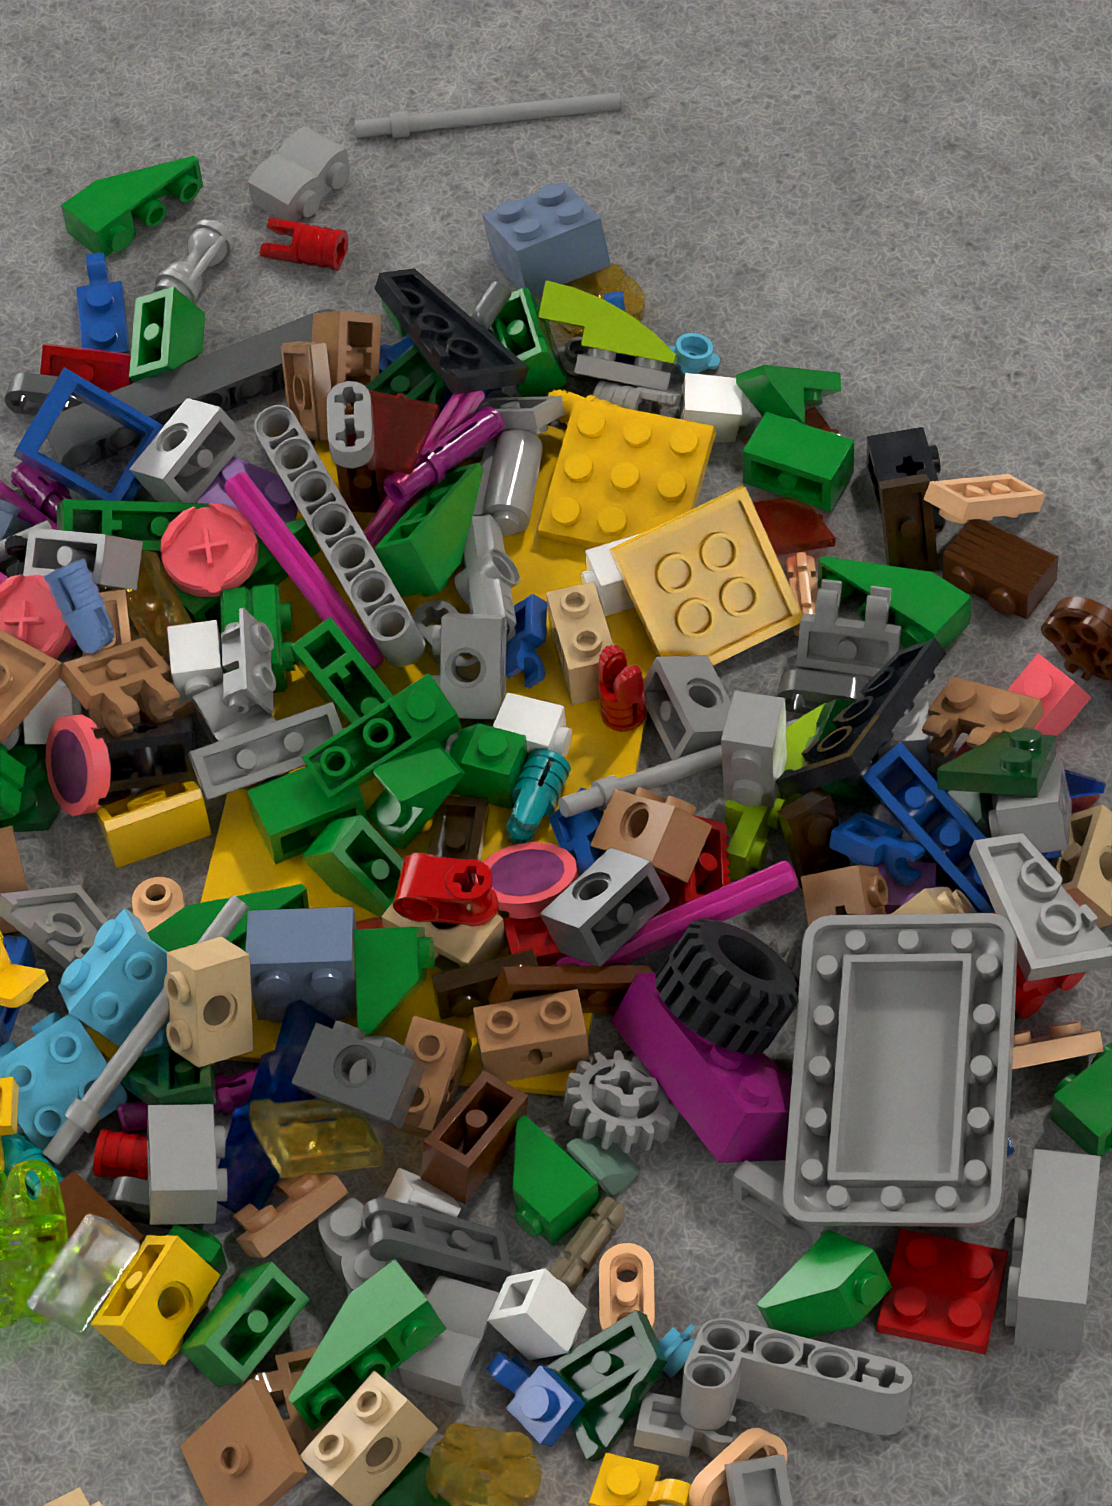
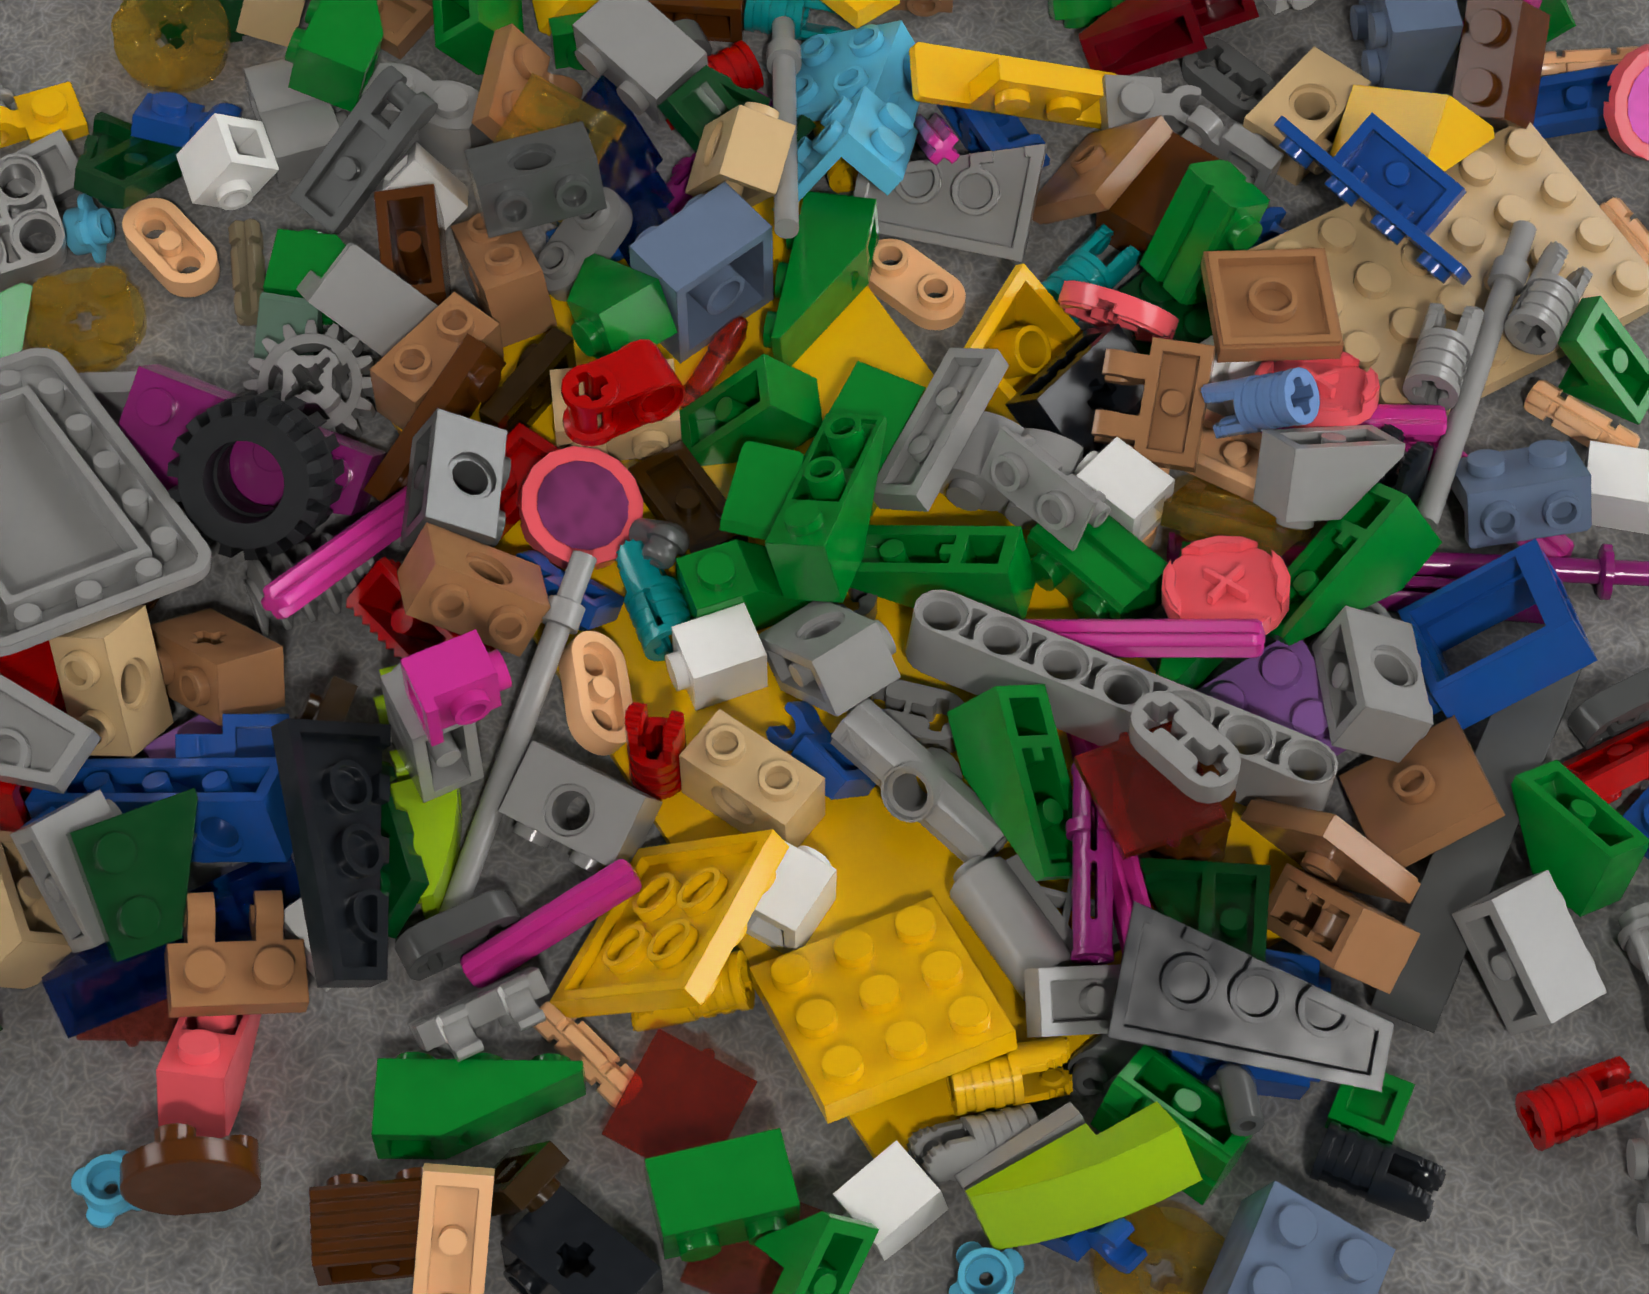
camera: 135 degrees right, 5 degrees up
(57, 841) = (1086, 267): none -> teal hinge
(58, 955) = (936, 139): none -> dark pink axle
(227, 385) = (1425, 798): none -> medium nougat plate
(257, 298) = (1529, 953): none -> light grey brick
(447, 275) = (1378, 1172): none -> black hinge
(496, 805) = (661, 539): none -> dark grey arm
(553, 1100) = (366, 299): none -> light grey panel
(627, 751) = (595, 692): none -> light nougat plate
(725, 1257) = (93, 290): none -> clear yellow plate
(738, 688) = (454, 683): none -> dark pink brick
(755, 654) = (550, 923): none -> dark pink axle

